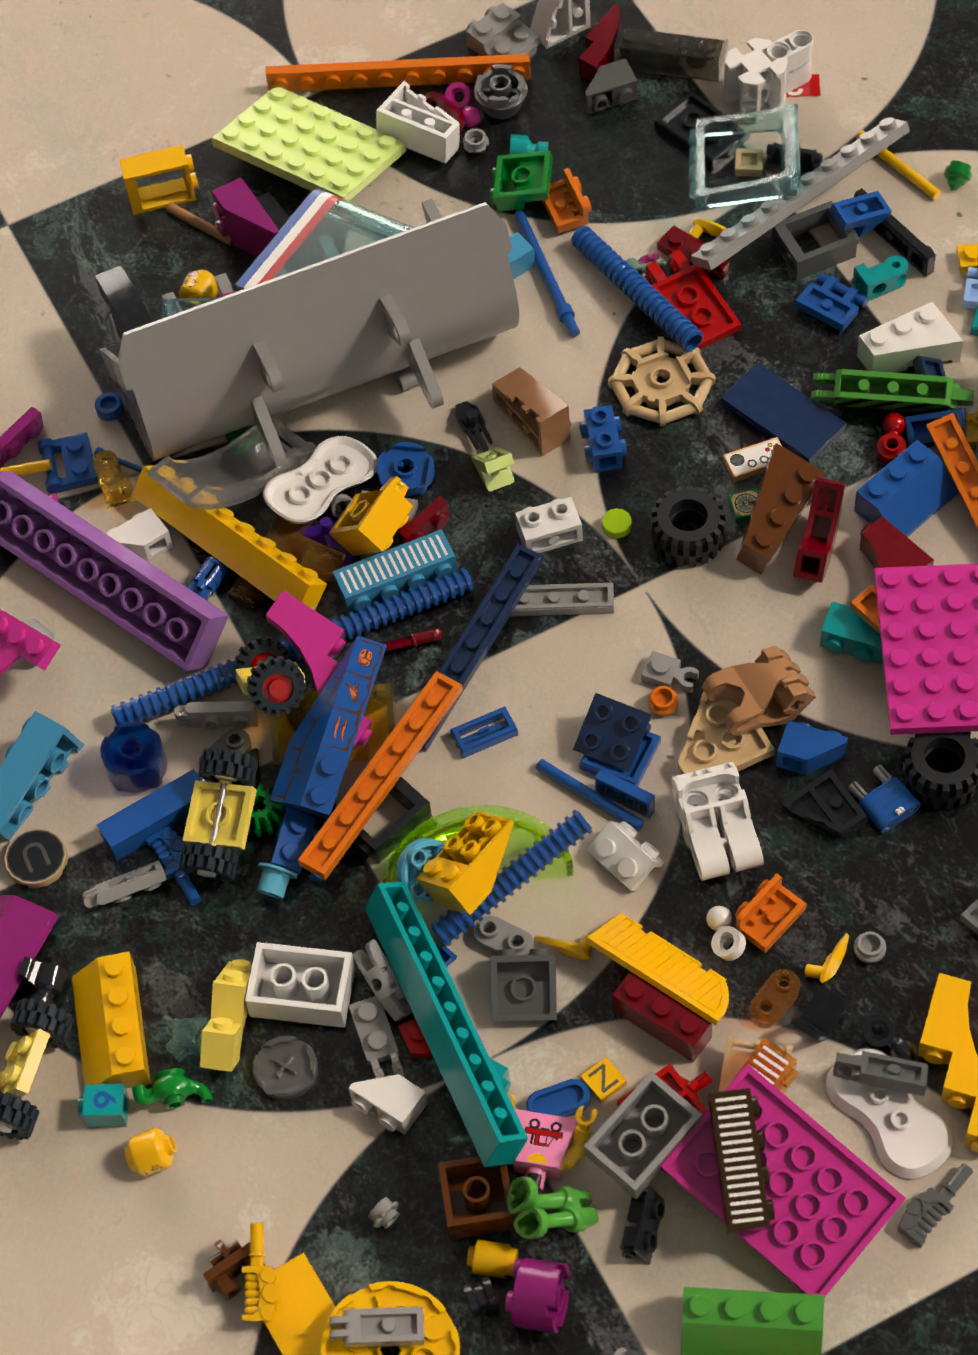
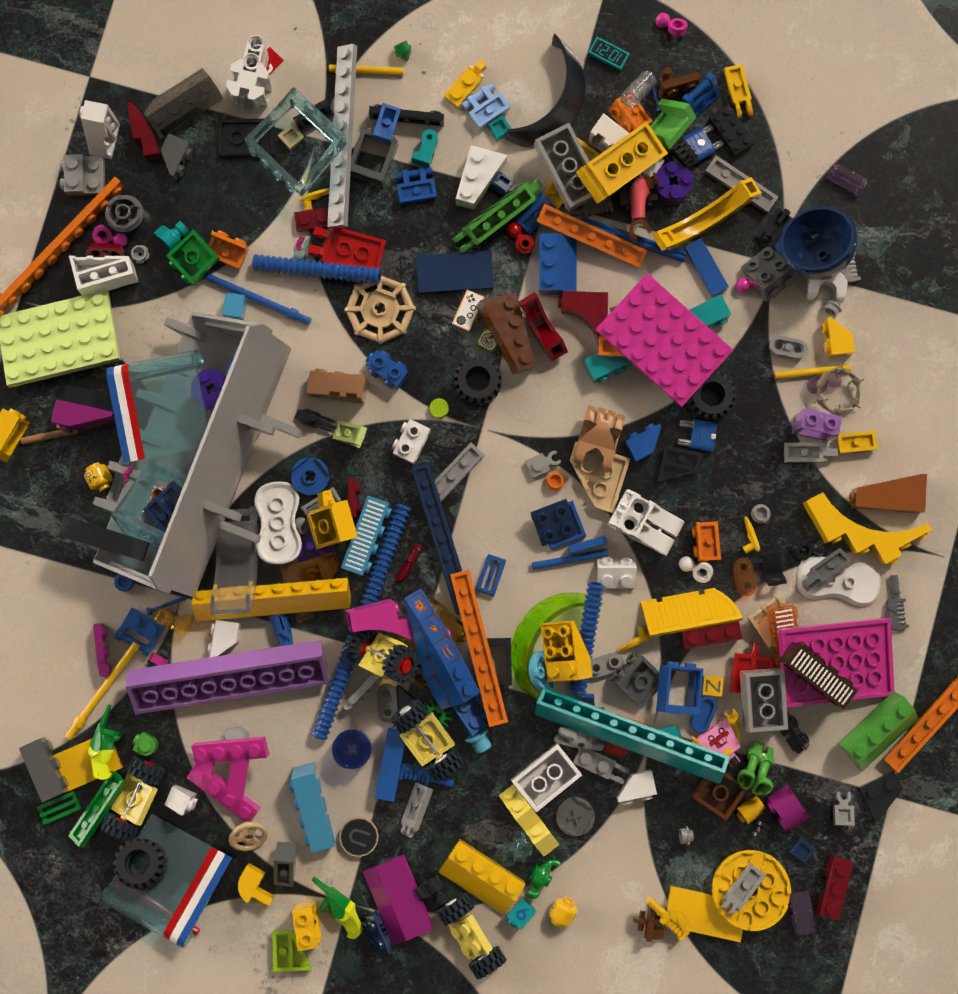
camera: 55 degrees left, 25 degrees up
(532, 1055) = (694, 689): none -> blue window

